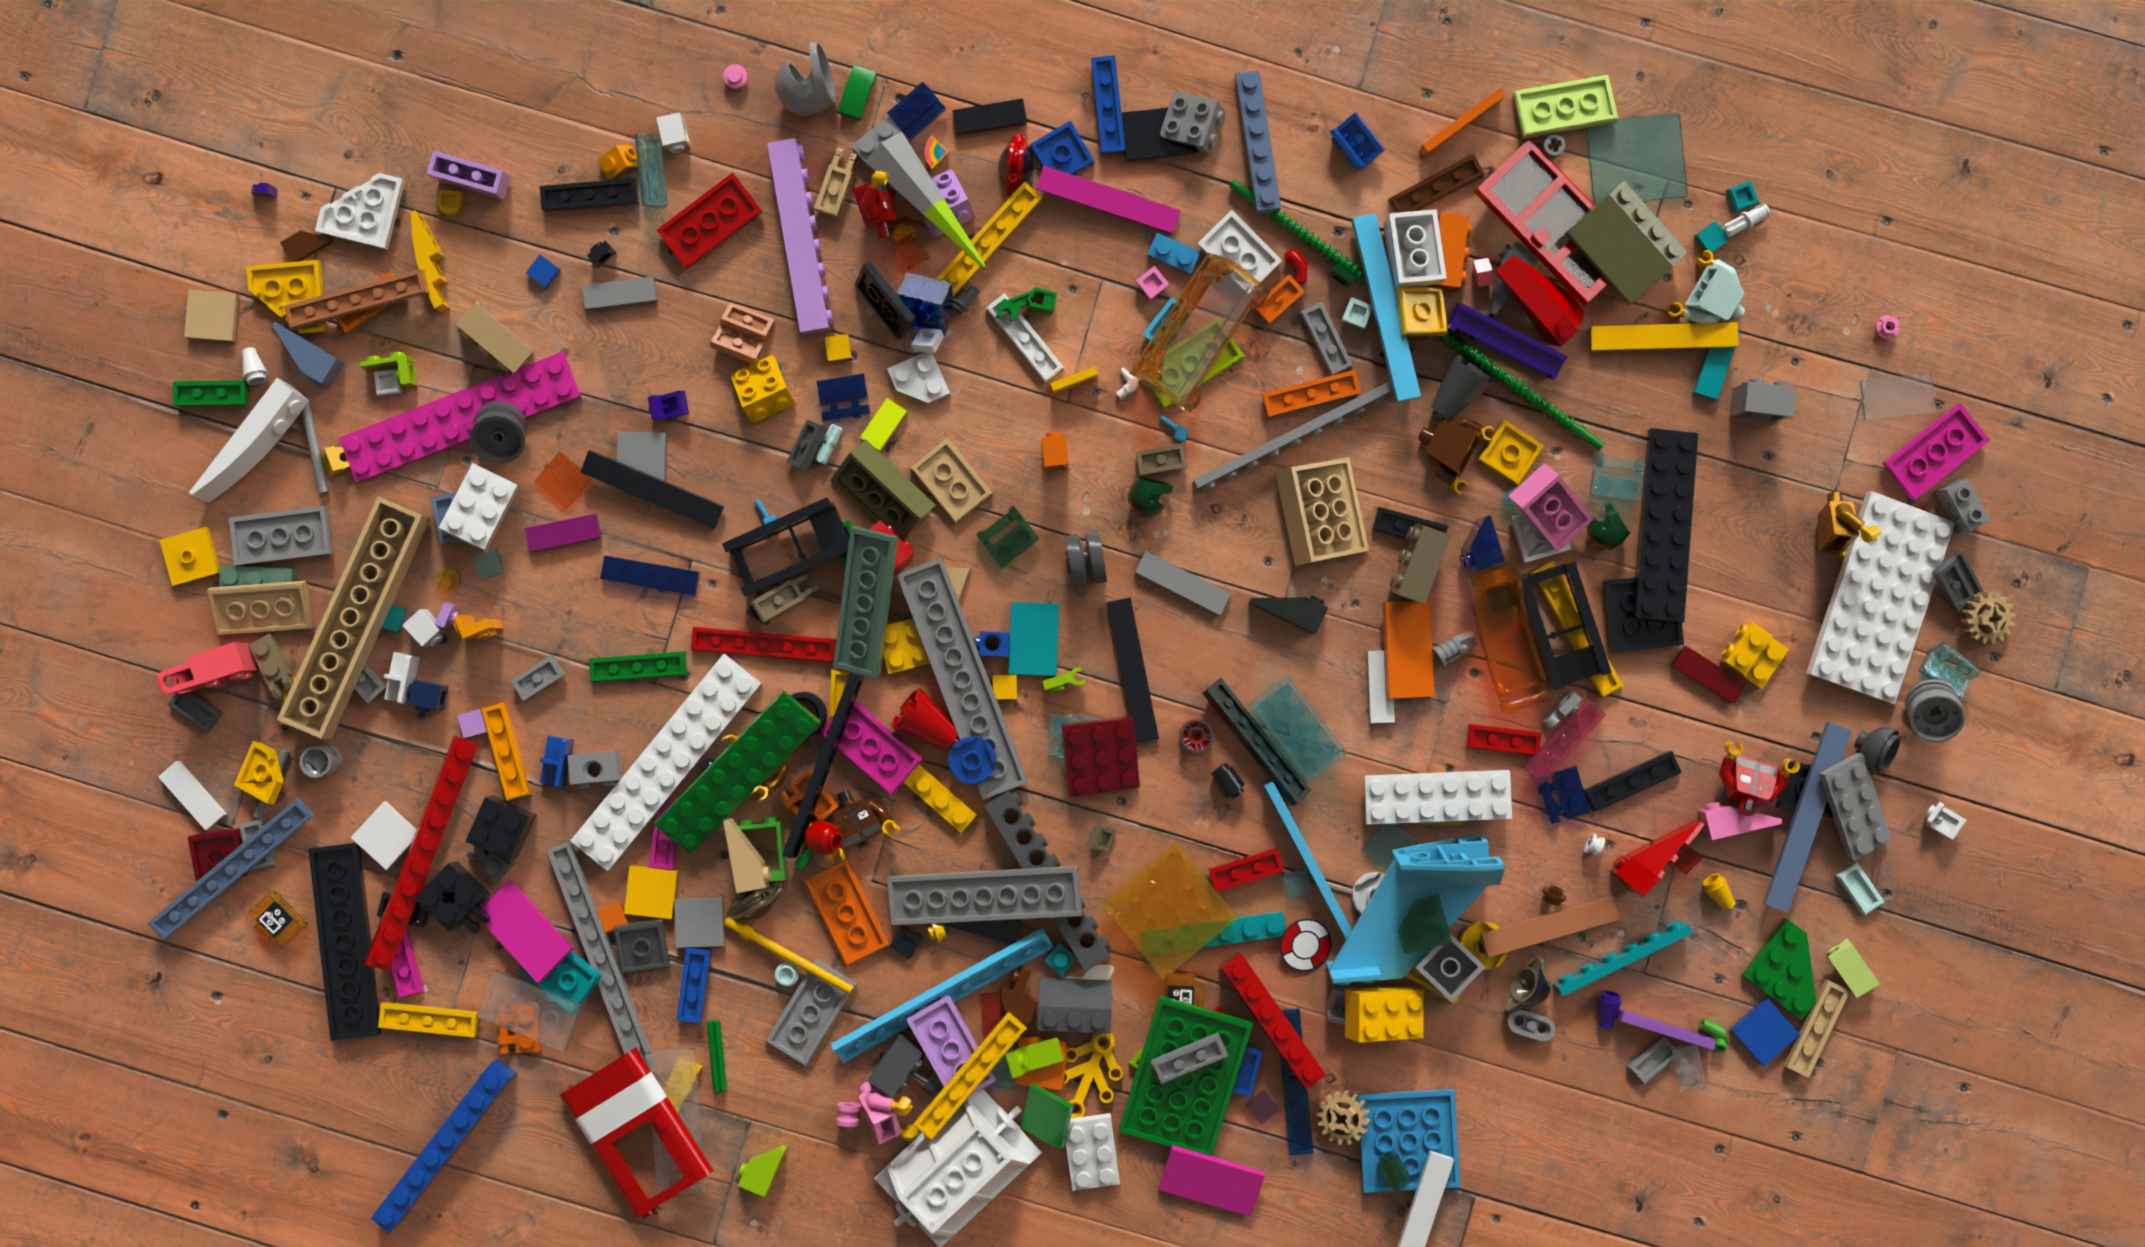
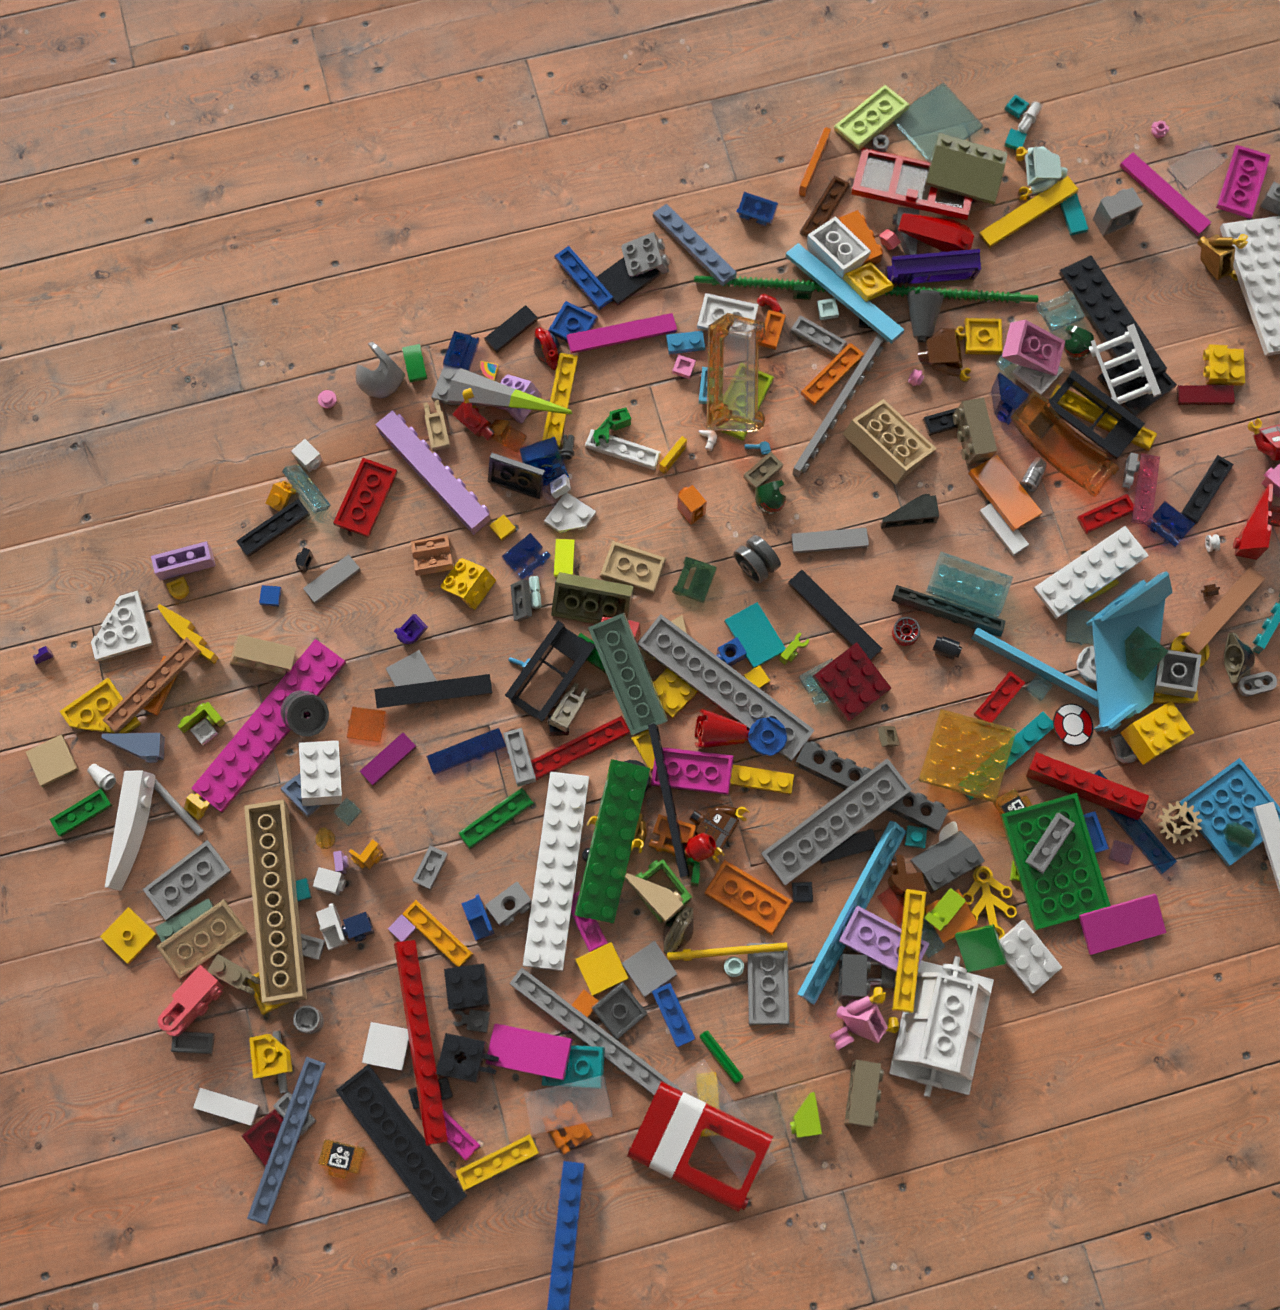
camera: 30 degrees left, 15 degrees down
(303, 245) = (92, 674): reddish brown tile -> none
(700, 618) = (519, 757): none -> light grey tile
(831, 1185) = (863, 1094): none -> dark tan brick
(936, 932) = (819, 870): yellow plate -> none
(1401, 456) = (916, 377): none -> bright pink plate
(1653, 612) = (1137, 353): none -> white fence
(1836, 410) = (1165, 194): none -> dark pink tile

